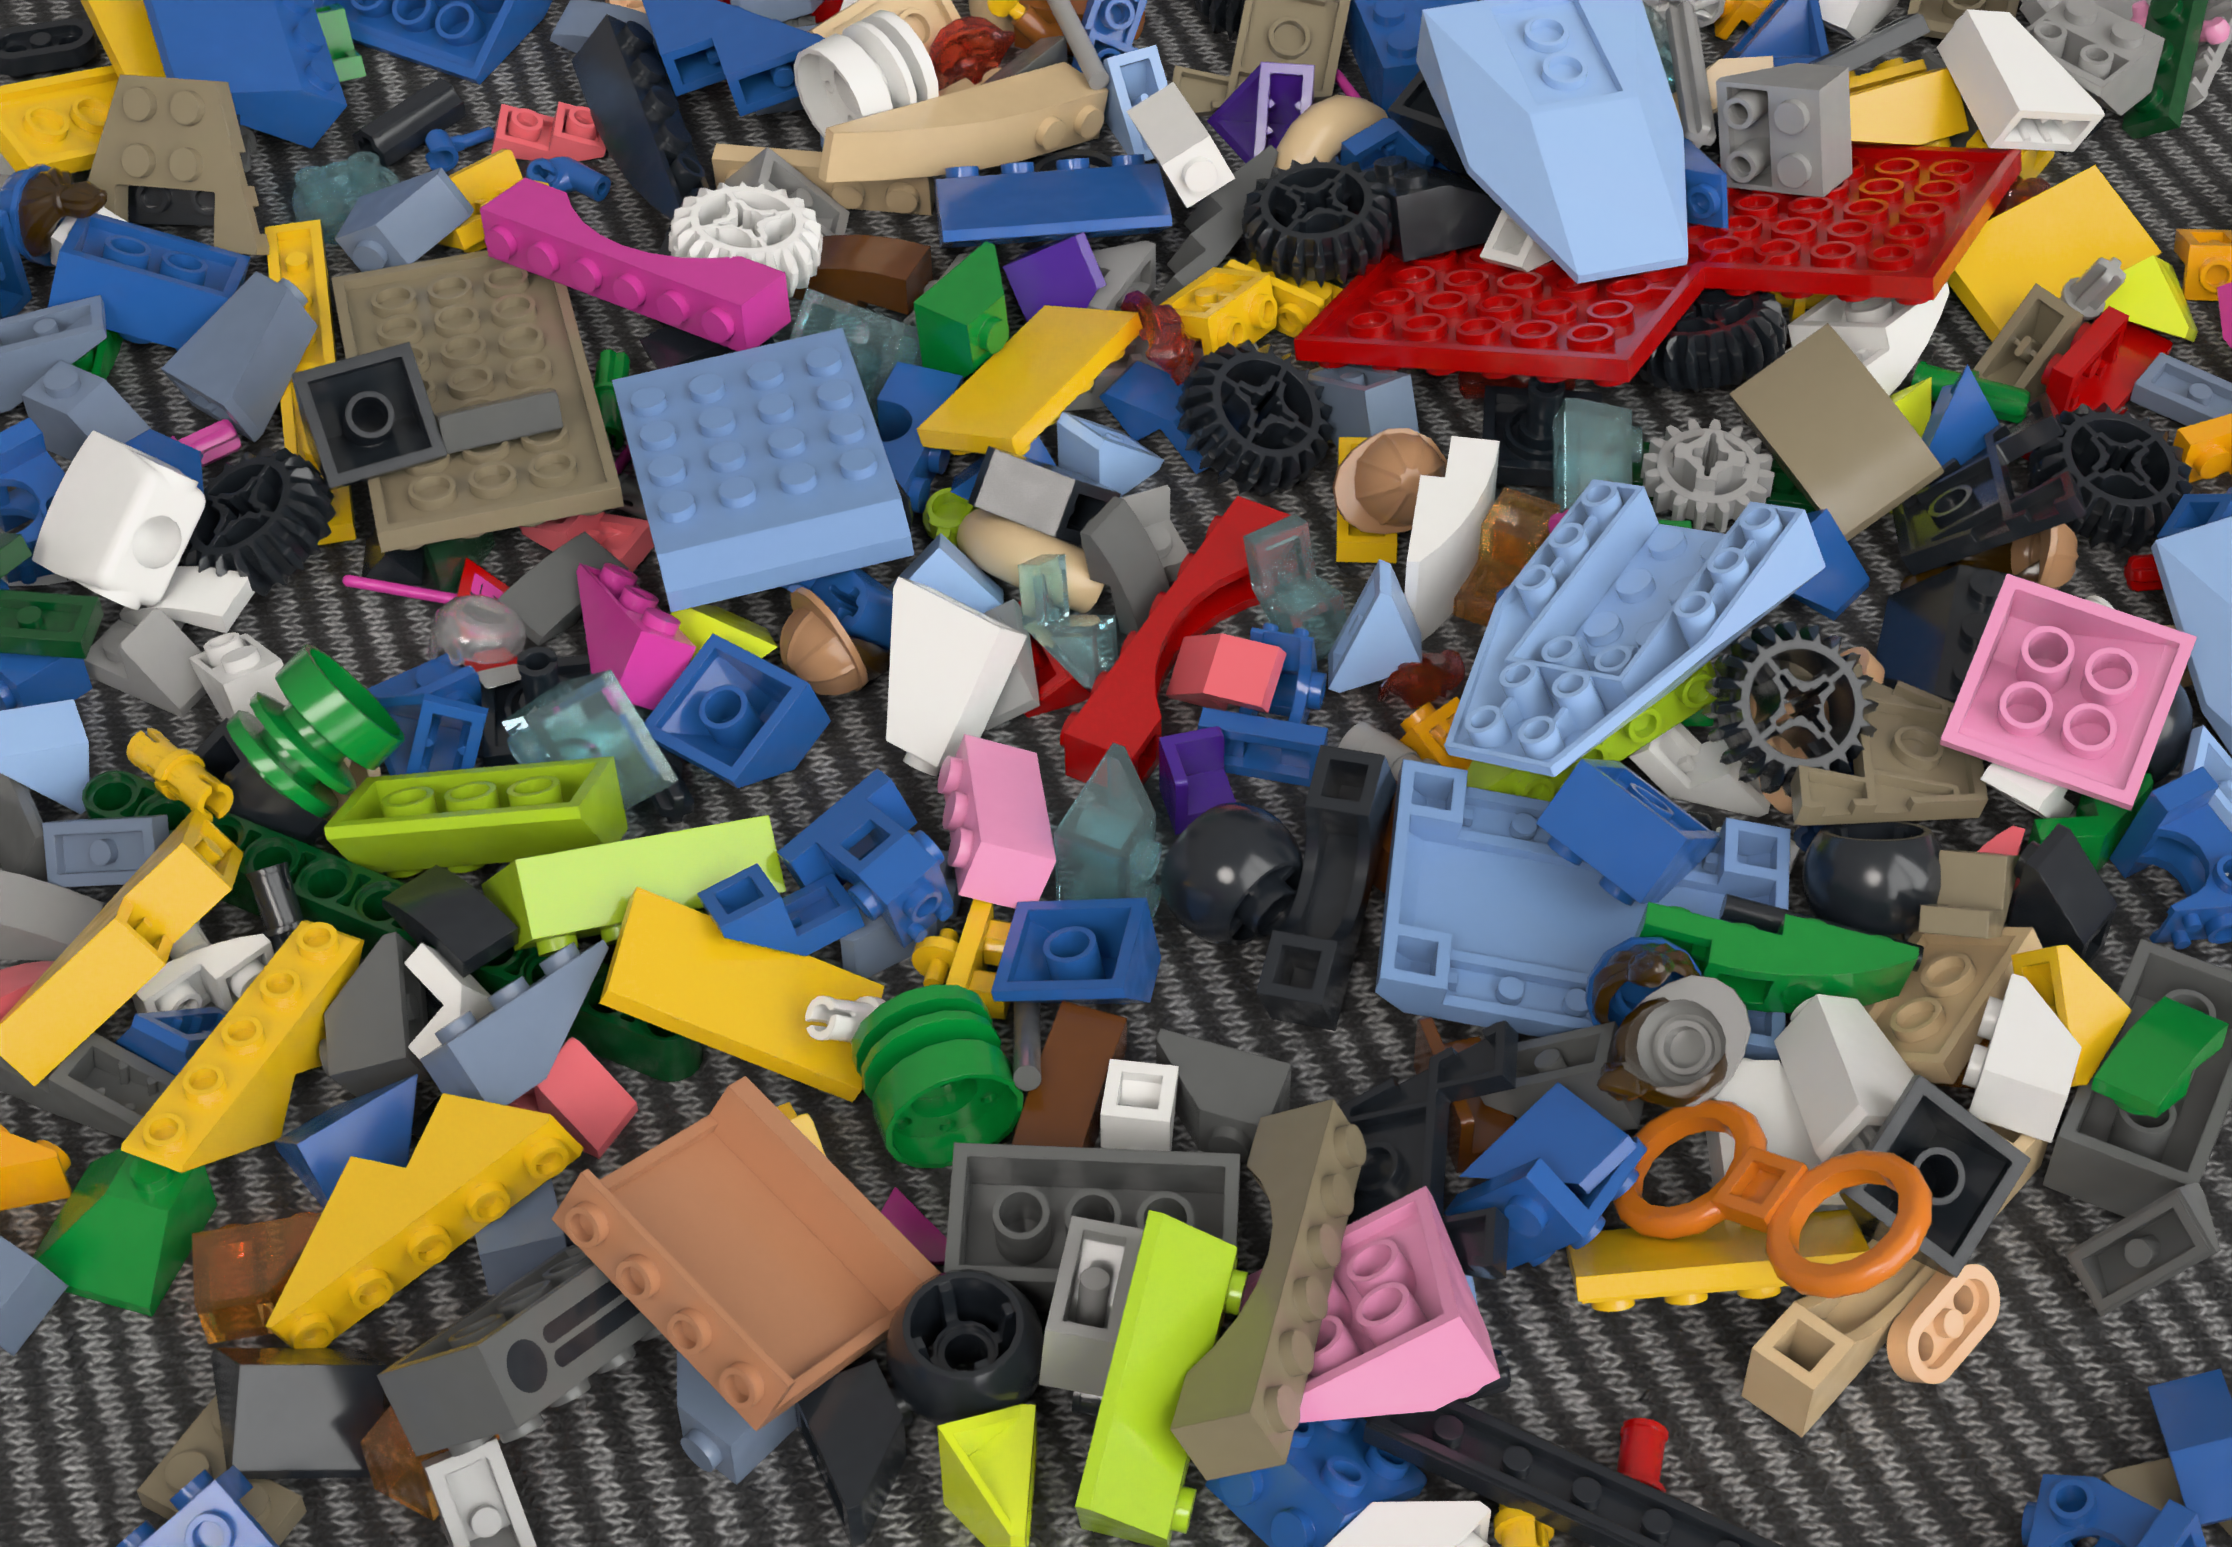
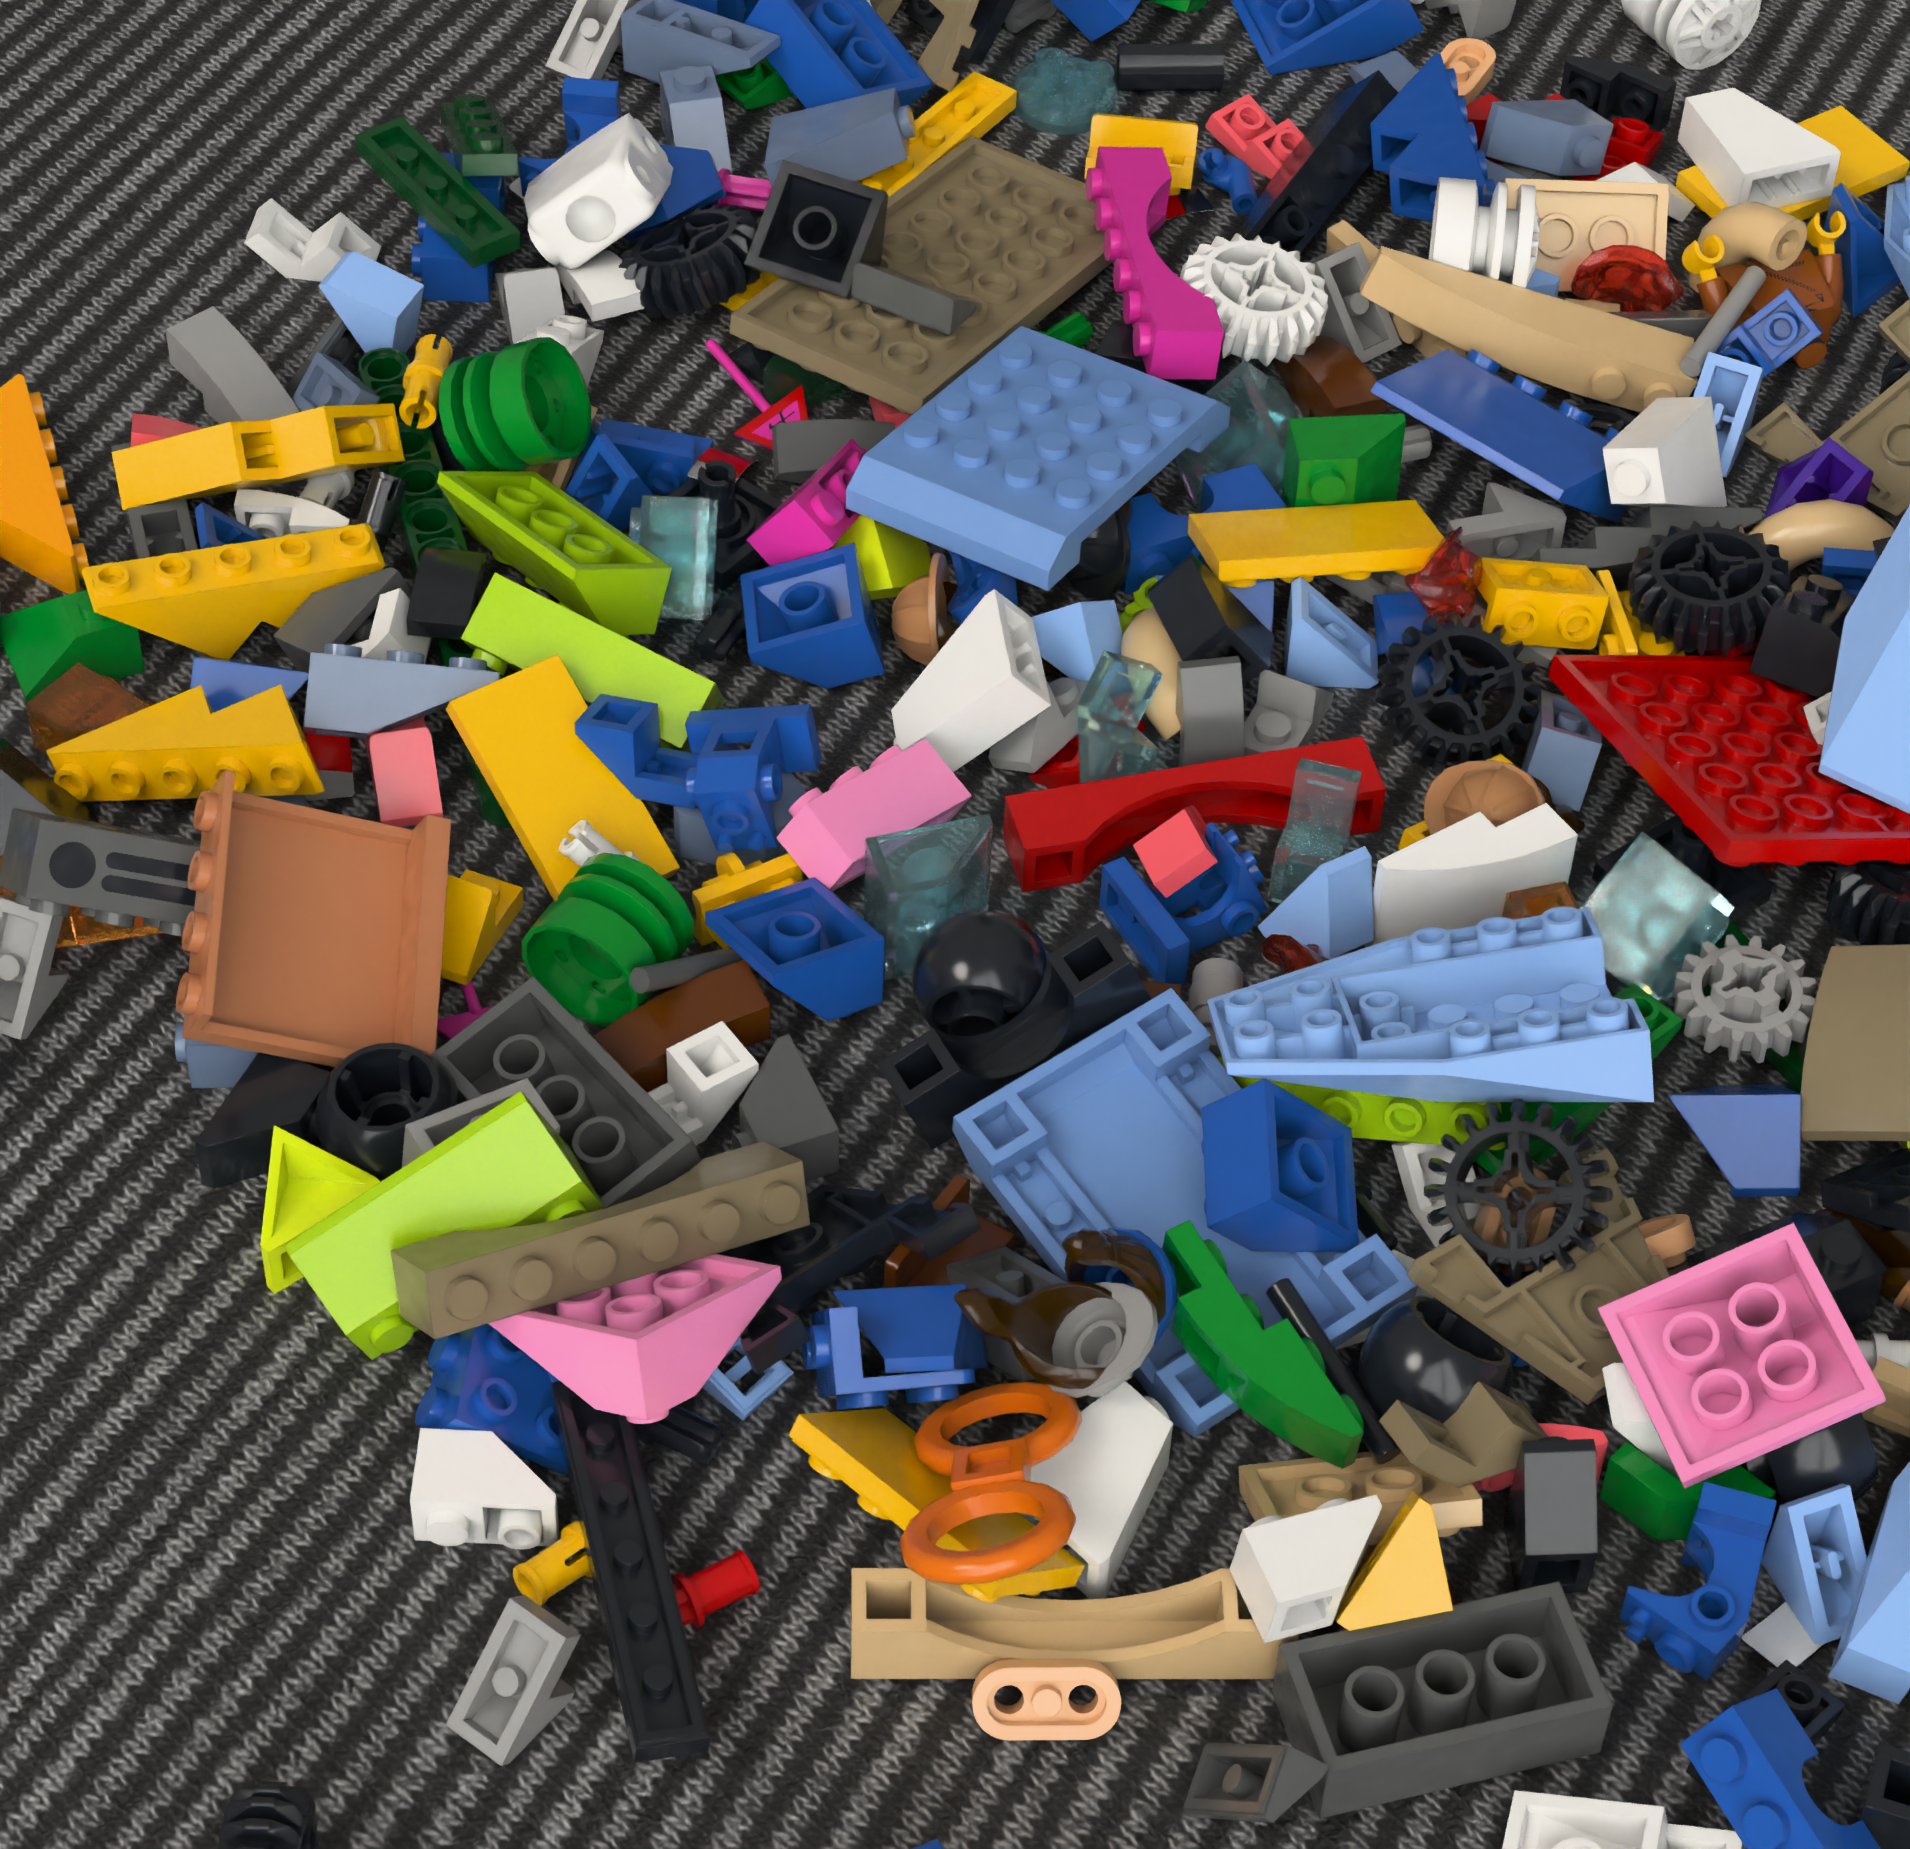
camera: 45 degrees right, 0 degrees up
(402, 221) = (1055, 127): sand blue slope -> none
(445, 148) = (1175, 97): blue hand -> none
(476, 631) = (733, 433): clear hair -> none
(1055, 275) = (1441, 483): dark purple slope -> none
(1192, 775) = (1064, 899): dark purple panel -> none
(1840, 1073) = (1191, 1487): white slope -> none
(1961, 1162) = (1135, 1578): black slope -> none
(2157, 1057) = (1405, 1652): green slope -> none

